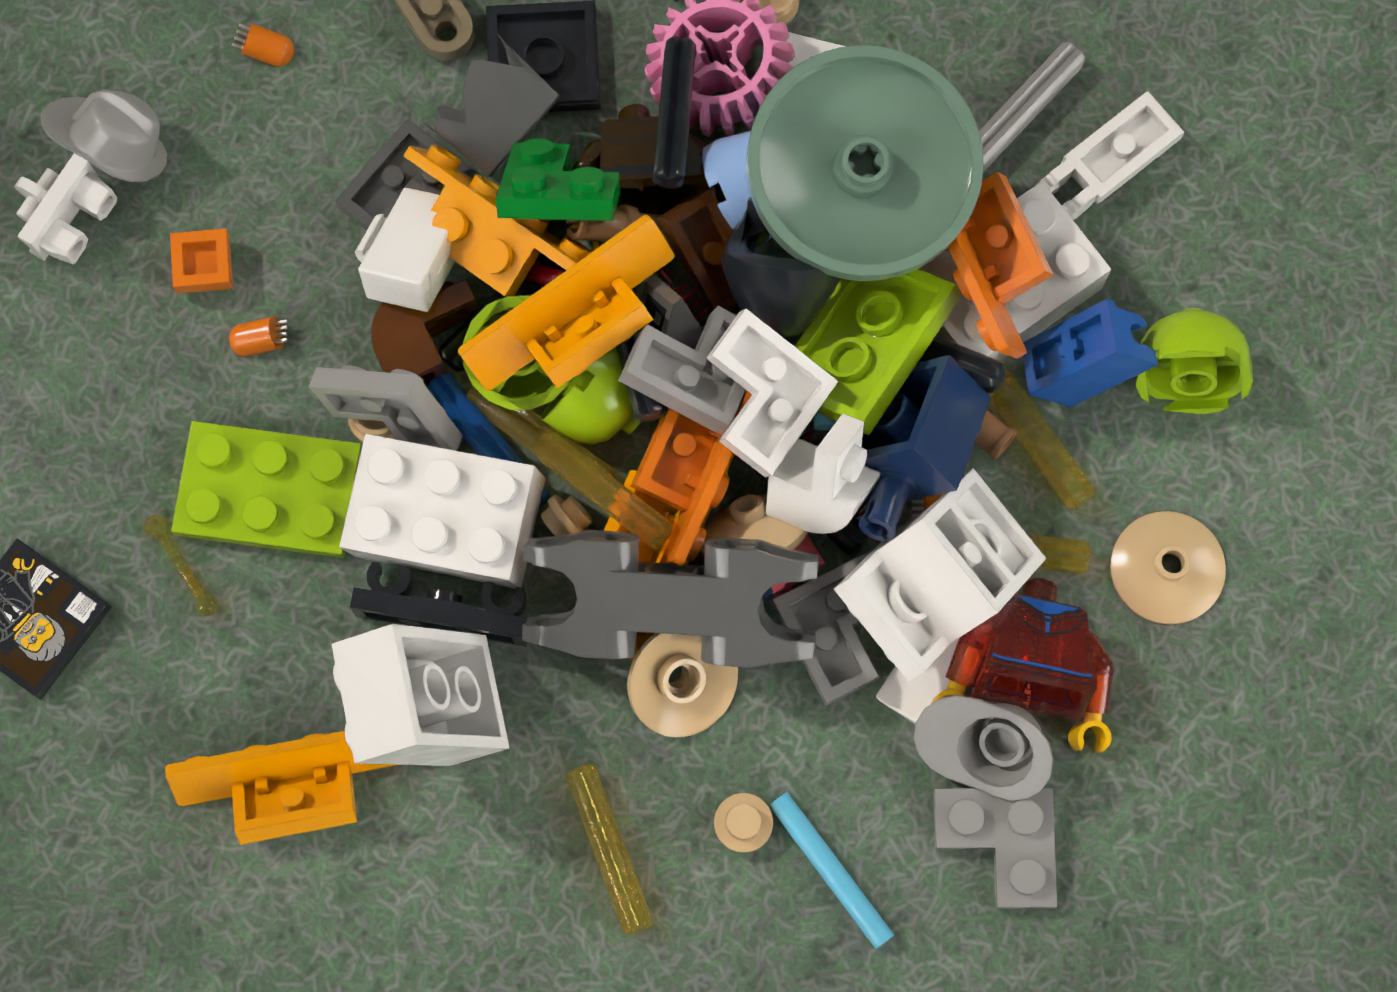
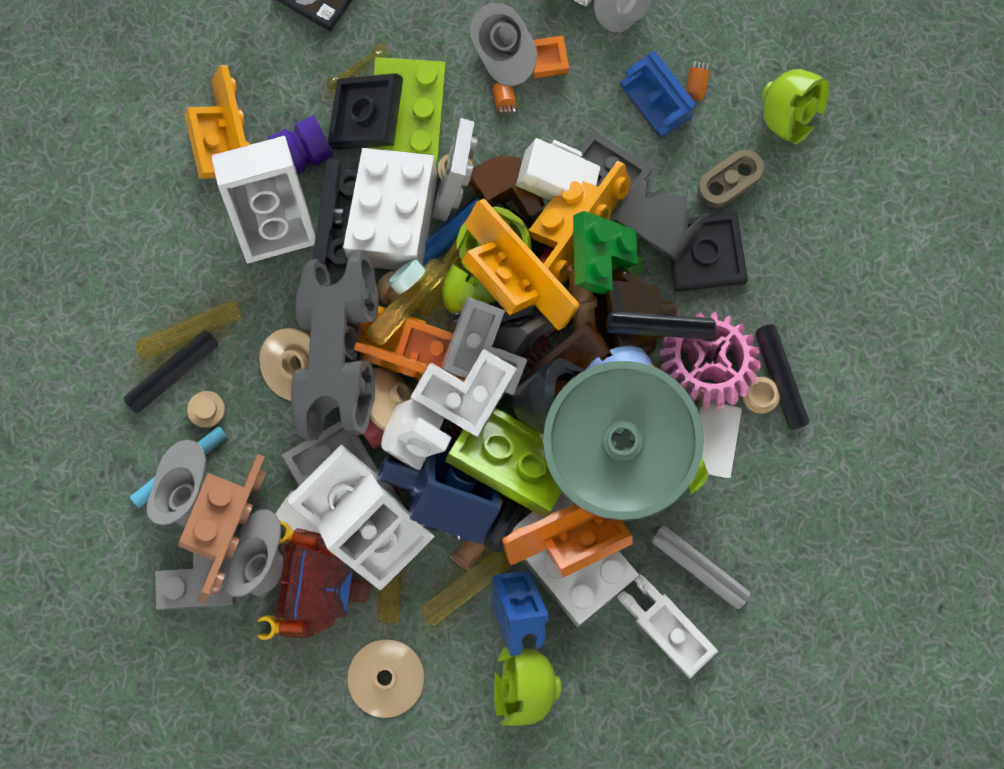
camera: 85 degrees right, 0 degrees up
(178, 321) = (503, 43): none -> light grey piece
(268, 547) = (365, 111): none -> black tile
(284, 101) = (658, 94): none -> blue hinge
(306, 642) = (306, 143): none -> dark purple wheel
(563, 486) = (406, 276): none -> light aqua tile
(676, 879) = (170, 371): none -> black axle
(867, 862) = (177, 484): none -> light grey piece
(935, 795) = (214, 521): none -> nougat bracket

